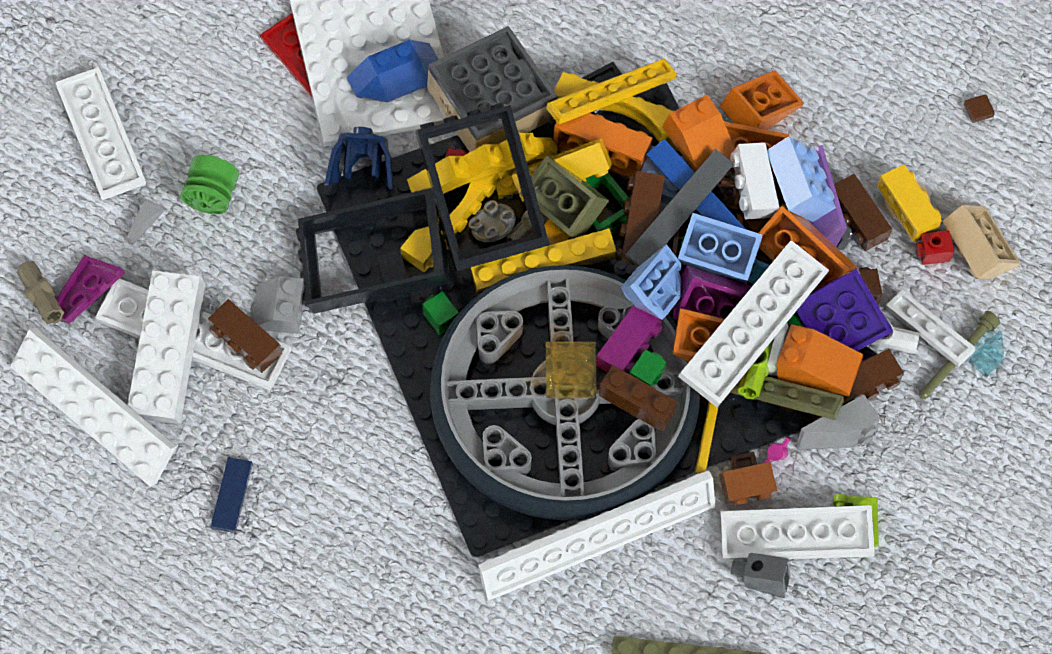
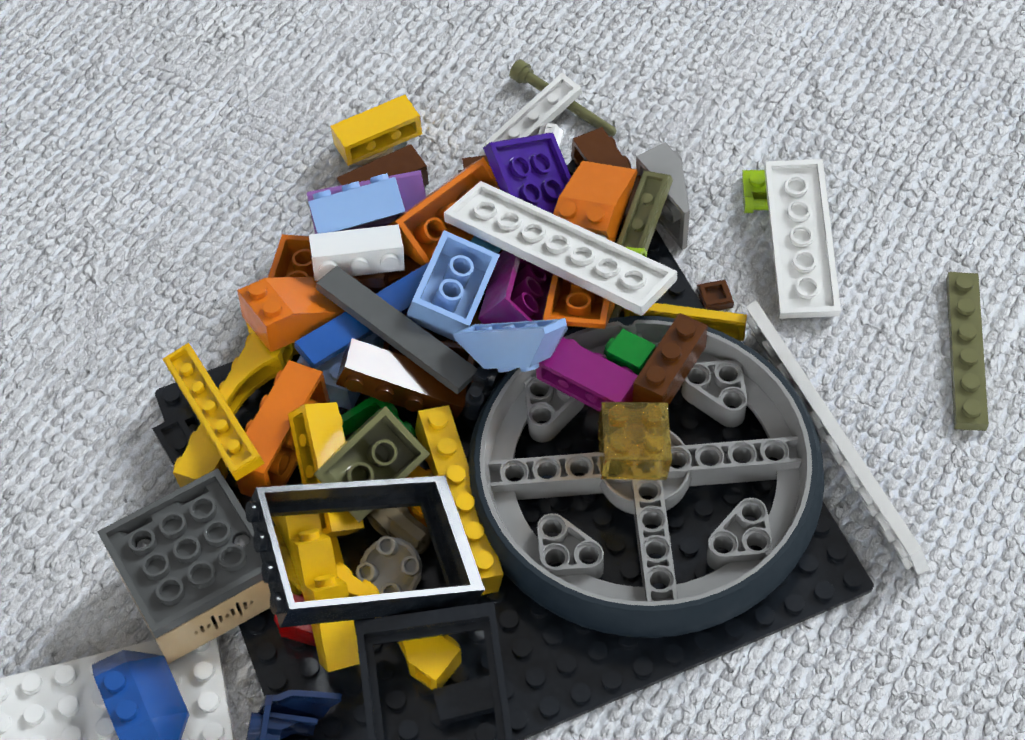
camera: 85 degrees left, 10 degrees down
(439, 312) = (530, 630): green brick -> none
(748, 483) = (741, 282): dark orange brick -> none
(761, 101) = (222, 271): orange slope -> none
(764, 573) = (857, 265): dark grey torso -> none
(778, 451) = (696, 260): dark pink piece -> none
(935, 247) = (432, 117): red brick -> none
(979, 108) = (250, 76): reddish brown tile -> none
(980, 241) = (426, 75): tan slope -> none
(989, 356) = (551, 69): clear light blue tile -> none

